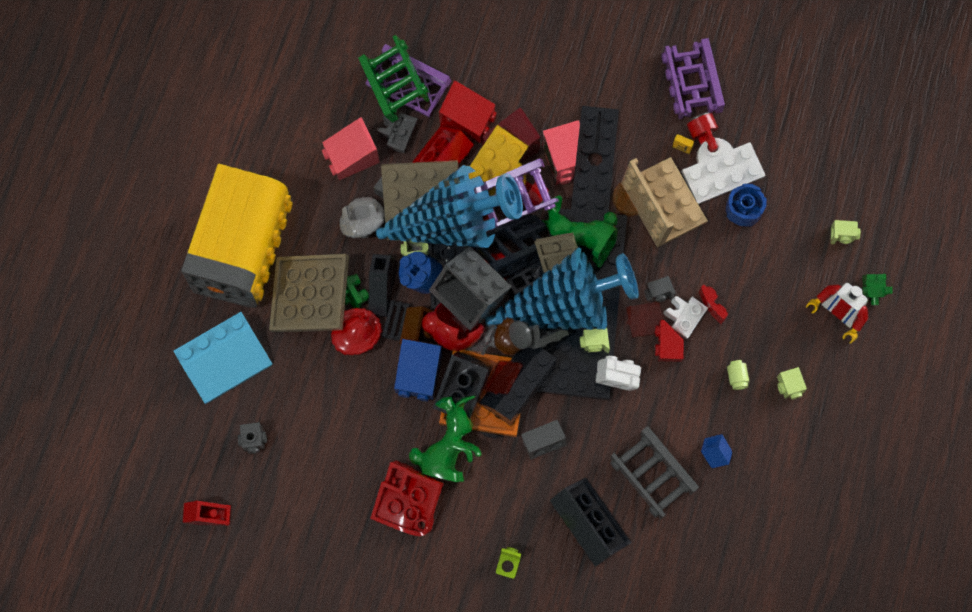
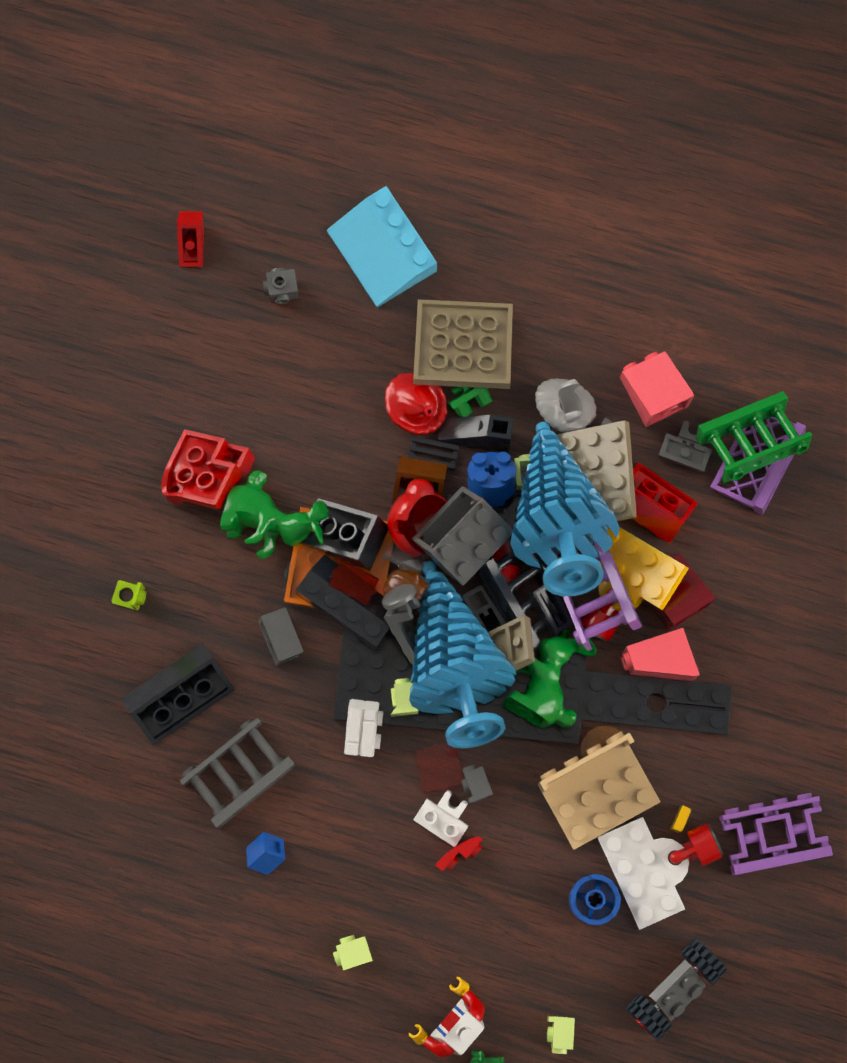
camera: 85 degrees right, 5 degrees up
(237, 236) = (527, 249): yellow piece -> none
(418, 370) = (365, 479): blue slope -> none
(467, 112) = (713, 534): red slope -> none
(670, 344) = (404, 796): red slope -> none
(738, 375) = (364, 883): yellowish green brick -> none
(830, 165) = (677, 989): none -> plate

